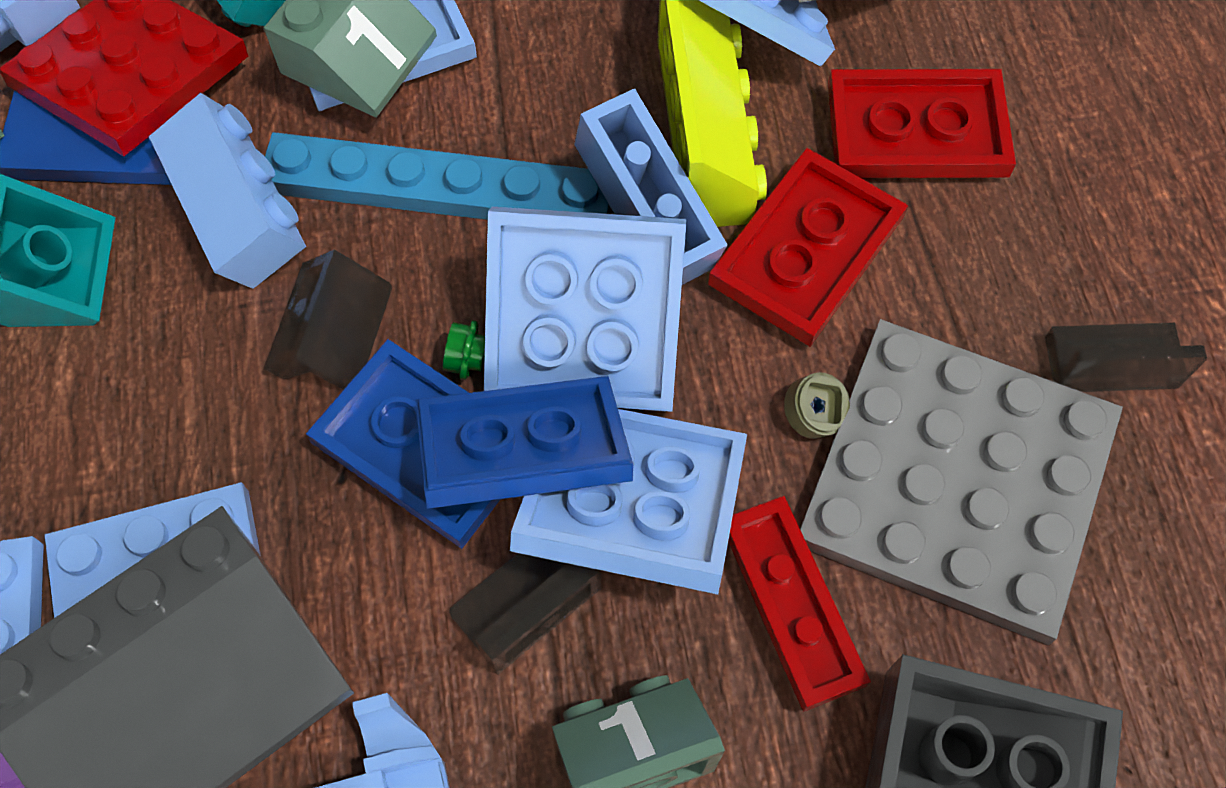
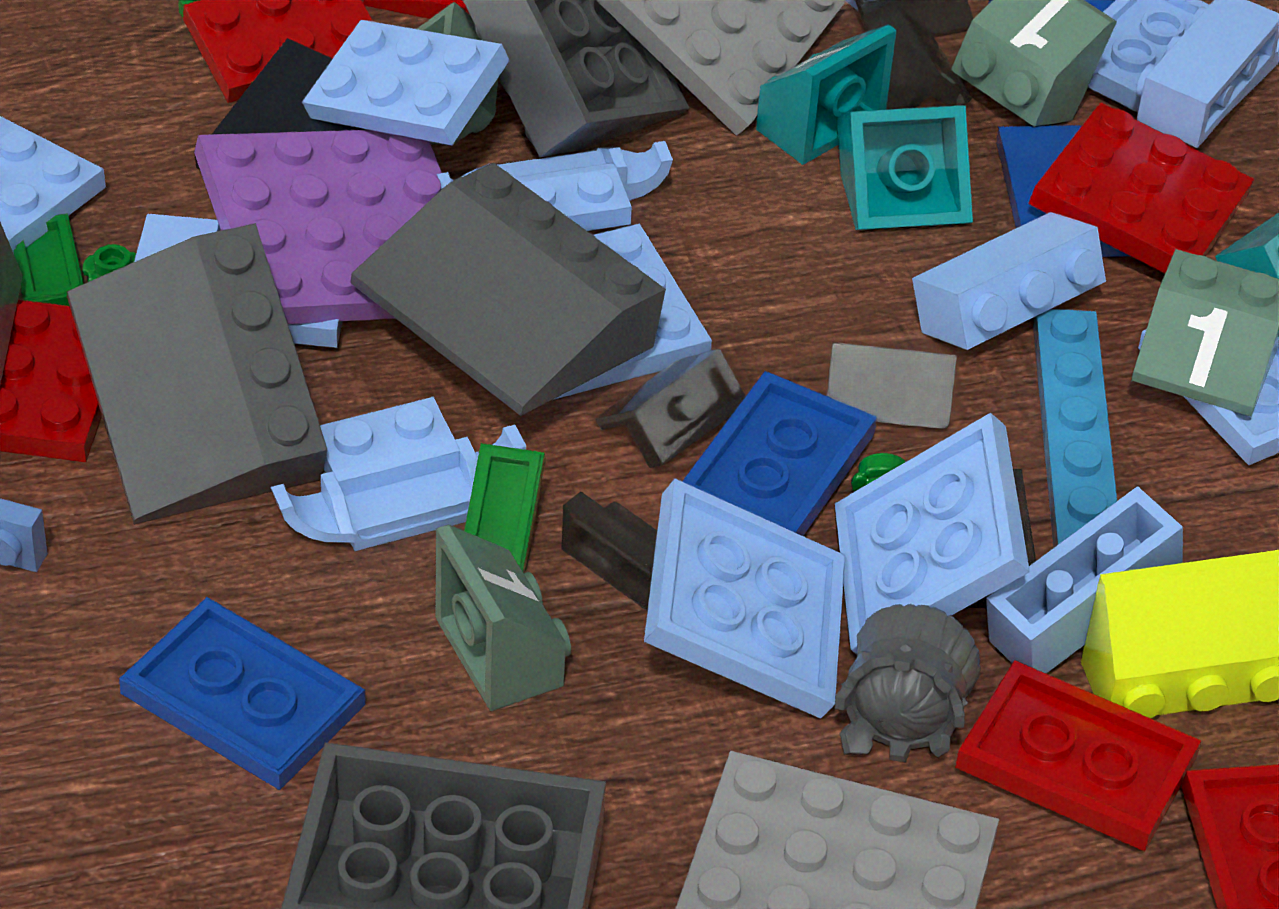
camera: 80 degrees right, 20 degrees down
(326, 534) = (677, 406): none -> clear smoke panel
(470, 730) = (506, 498): none -> green tile
(521, 441) = (778, 503): blue tile -> none
(747, 359) = (908, 681): none -> dark grey hair
(795, 604) = (666, 745): red plate -> none
(816, 405) = (882, 762): olive tile -> none

